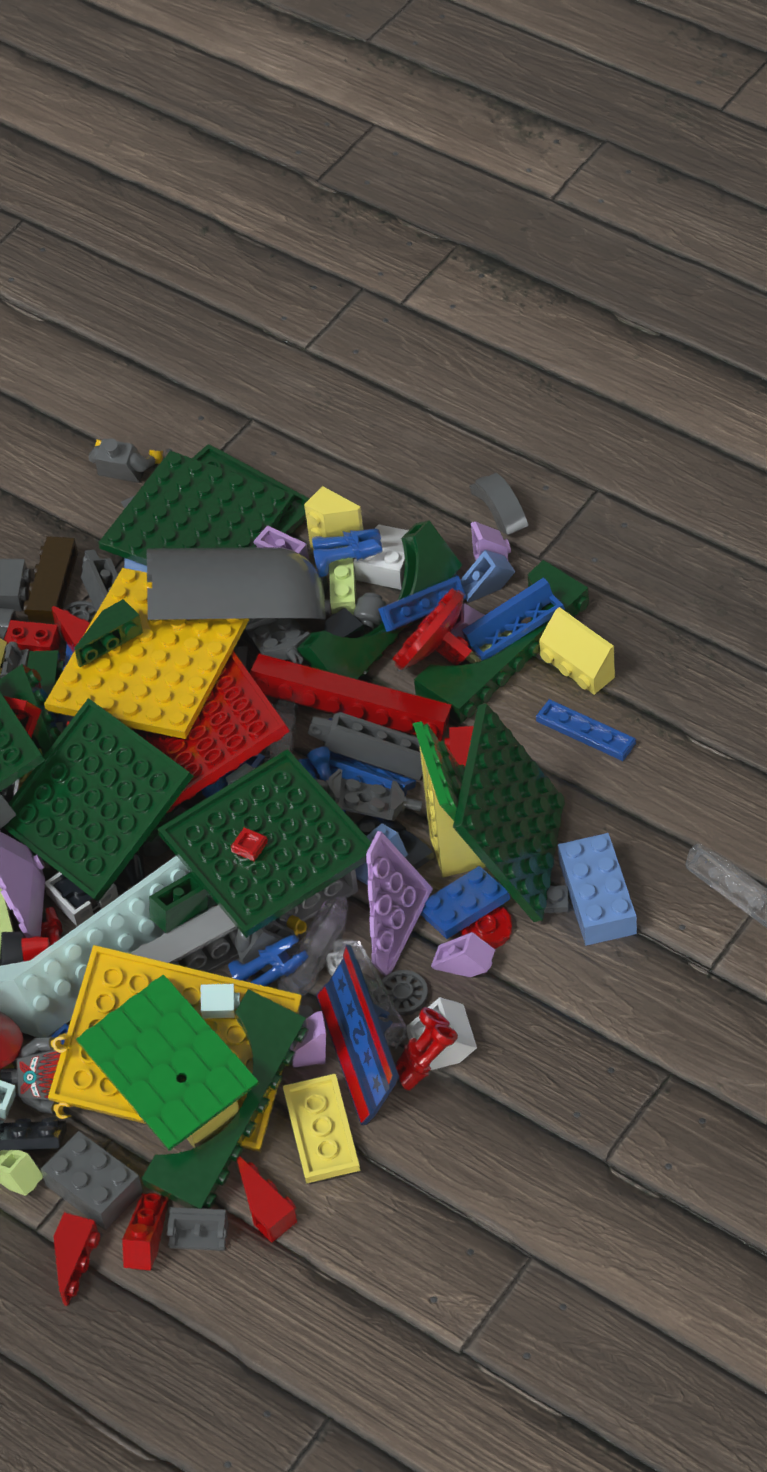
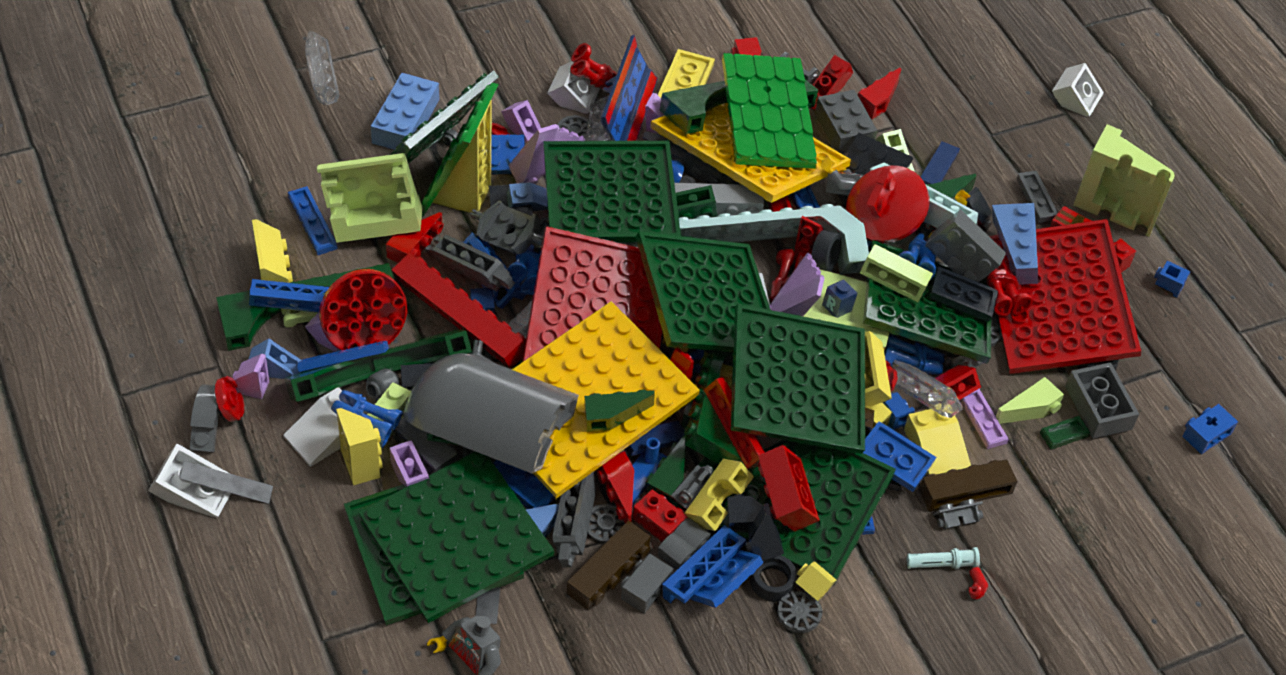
camera: 160 degrees left, 0 degrees up
(219, 1001) = (710, 131): light aqua brick -> none
(249, 844) = (626, 186): red tile -> none
(429, 462) = (226, 482): none -> flat silver sticker
(460, 450) = (187, 493): none -> white slope
(488, 510) = (228, 400): none -> red tile
(532, 712) = (371, 197): none -> yellowish green panel

